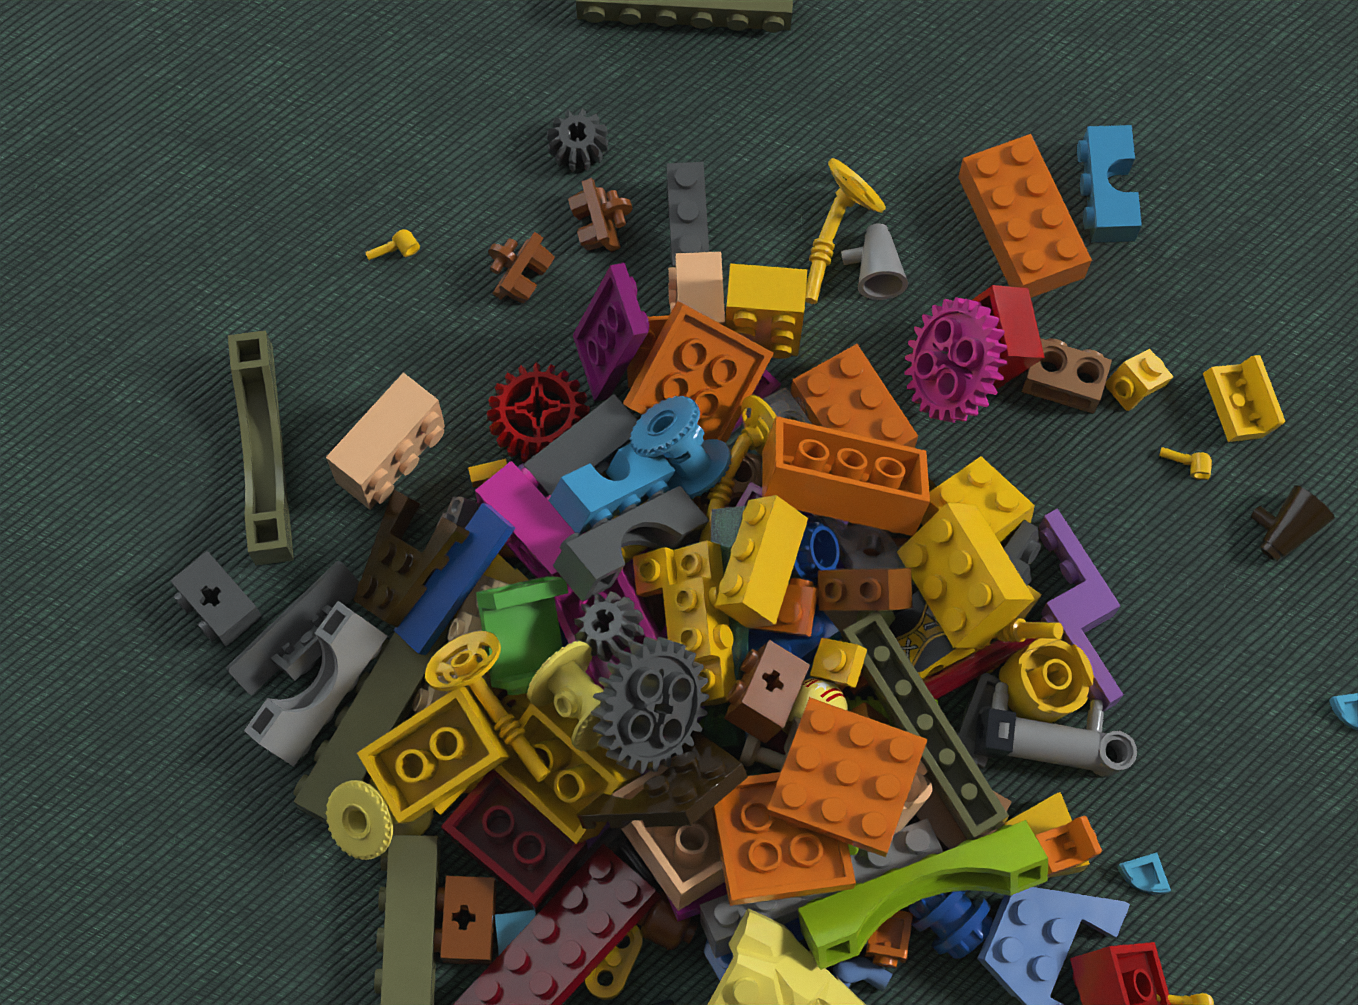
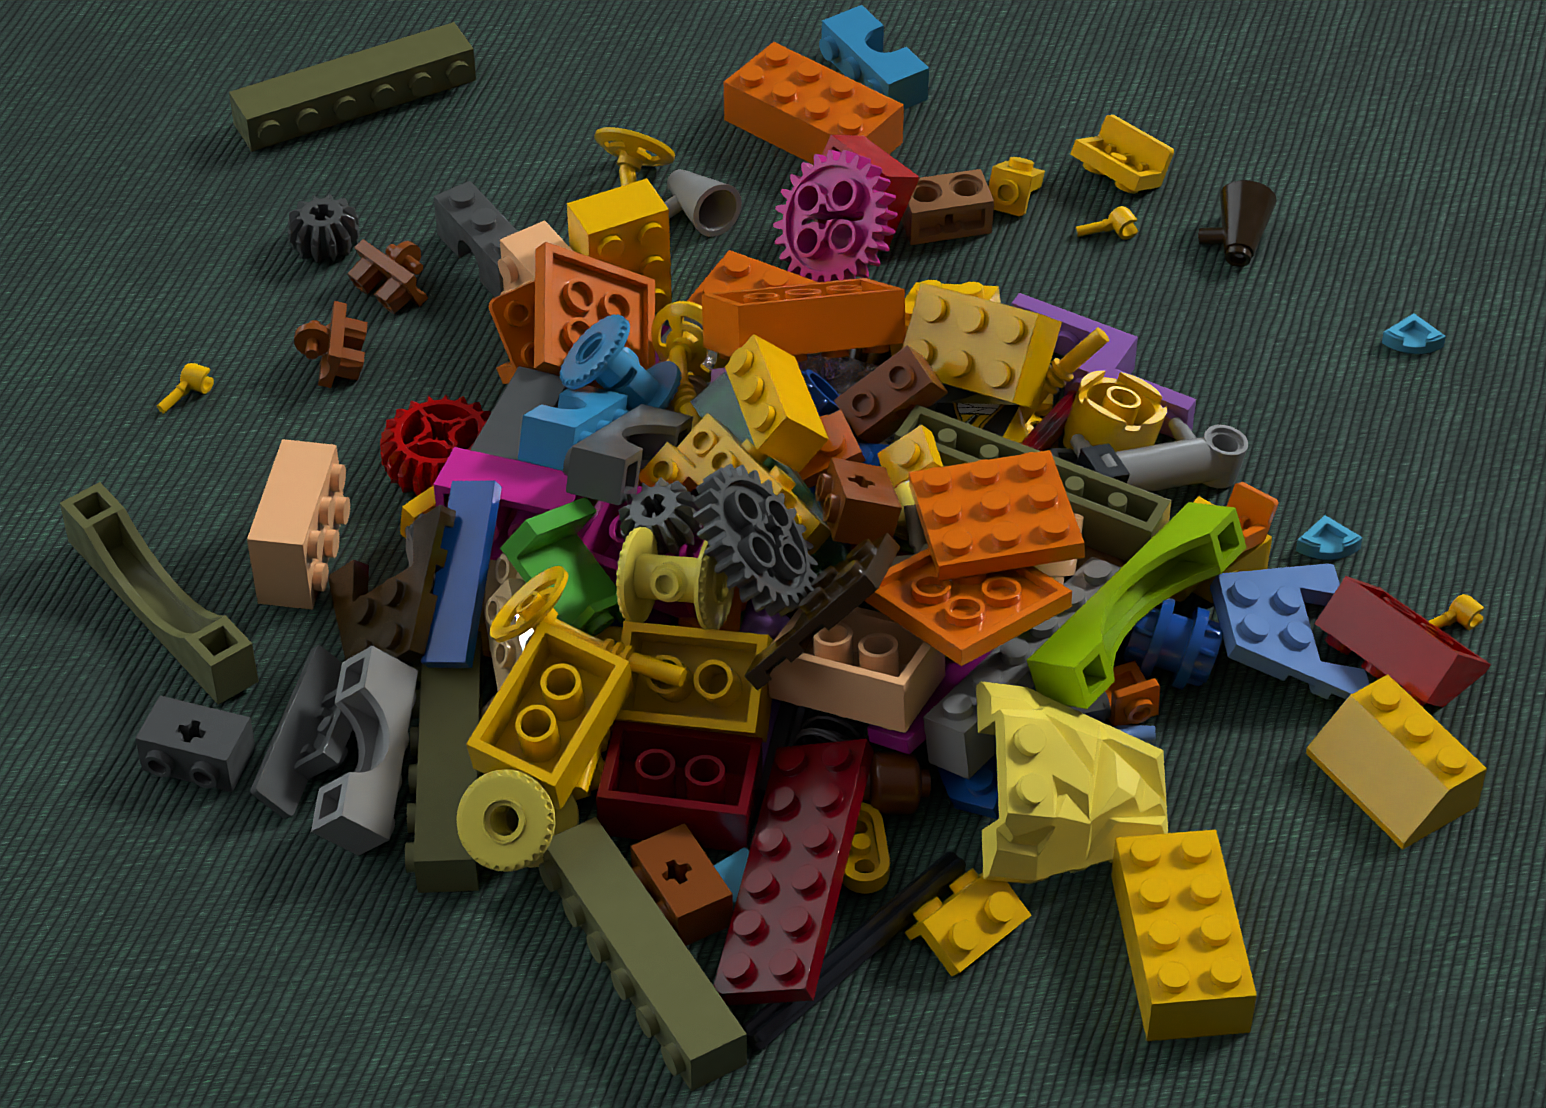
camera: 30 degrees left, 25 degrees down
(610, 331) = (478, 319): magenta plate -> none

